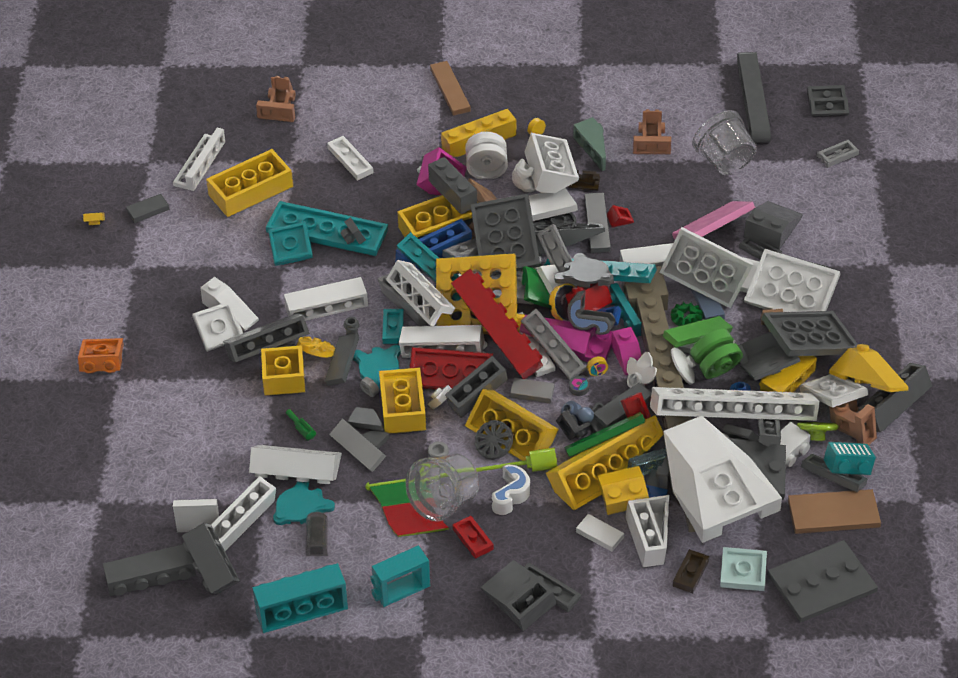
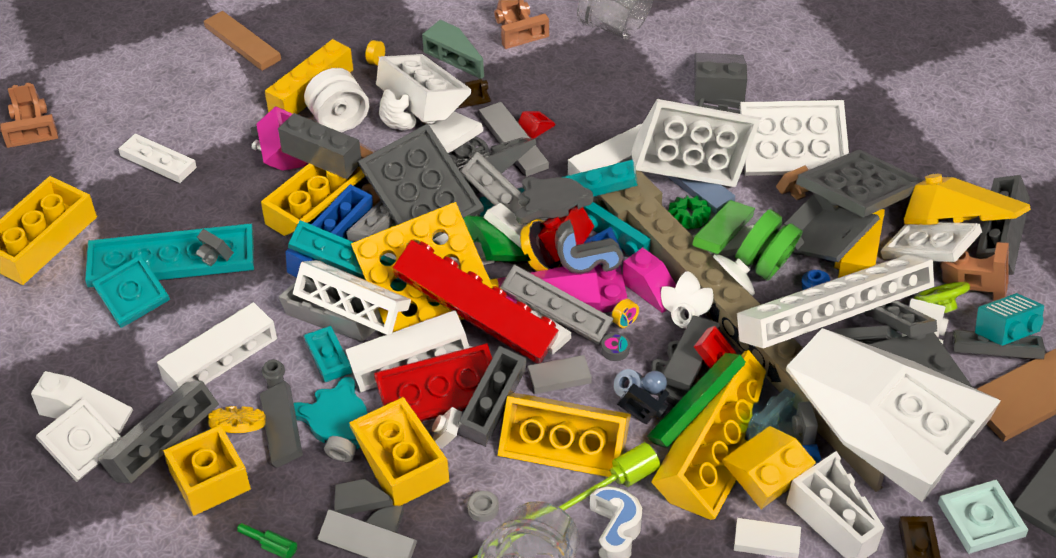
camera: 25 degrees left, 0 degrees up
(493, 439) = (552, 460): dark grey wheel -> none
(718, 218) = (657, 85): bright pink tile -> none

